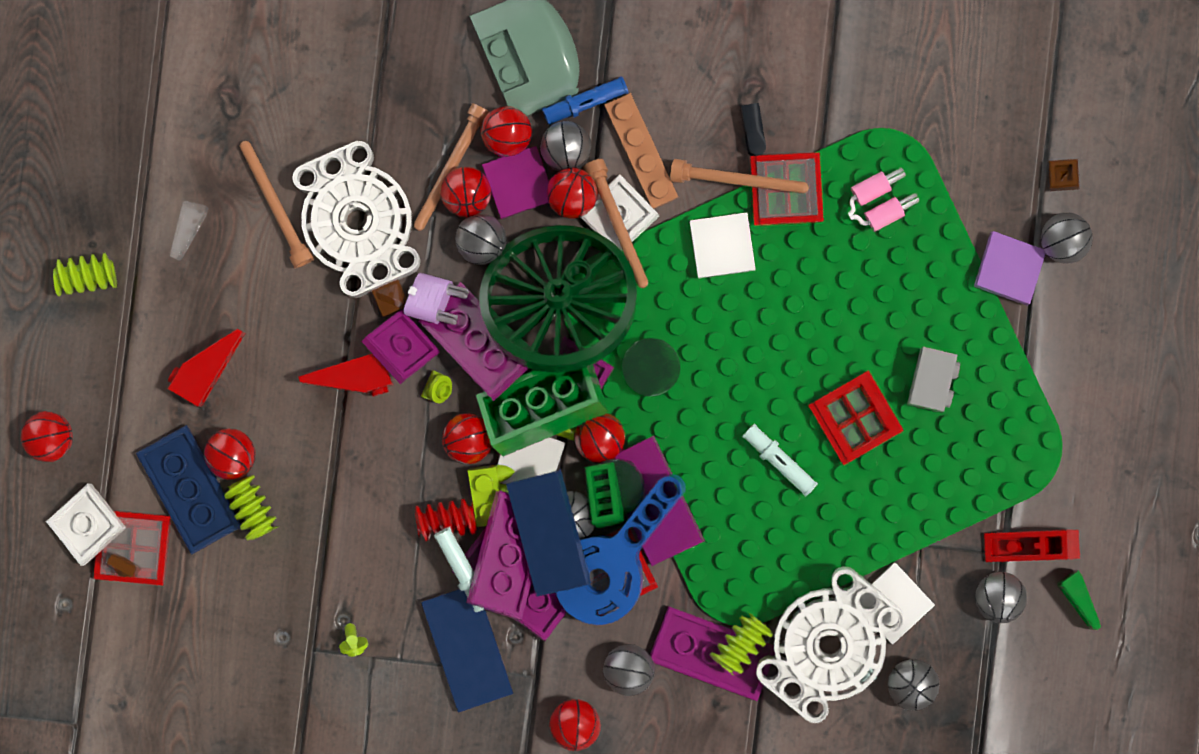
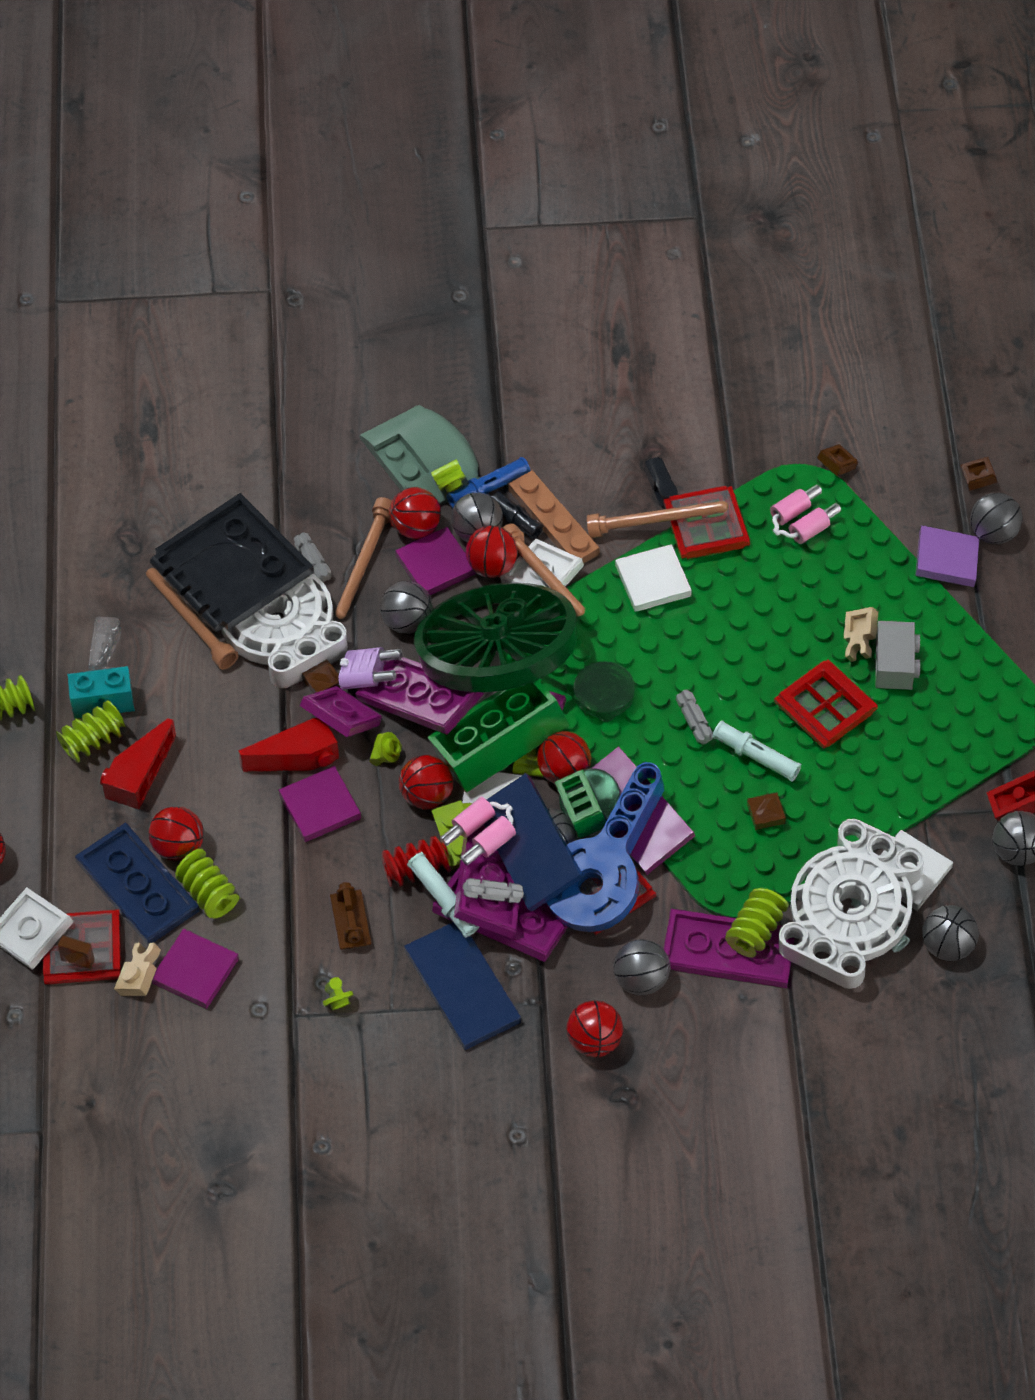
camera: 10 degrees left, 30 degrees down
(165, 326) = (91, 730): none -> lime piece
(178, 587) = (139, 973): none -> tan plate
(179, 281) = (97, 686): none -> teal brick
(230, 588) = (195, 968): none -> magenta tile
(318, 168) = (230, 563): none -> black hinge
(367, 435) = (319, 804): none -> magenta tile
(377, 563) = (350, 917): none -> reddish brown hinge
(401, 156) = (312, 554): none -> light grey axle
(465, 191) = (382, 567): red piece -> none
(499, 505) = (490, 838): none -> bright pink piece
(506, 581) = (493, 890): none -> light grey axle
(546, 95) = (449, 476): none -> lime plate
(605, 144) = (517, 515): none -> black pin
(730, 411) = (694, 717): none -> light grey axle
(775, 524) = (766, 811): none -> reddish brown tile
(906, 343) = (859, 629): none -> tan plate
(930, 134) = (838, 459): none -> reddish brown tile

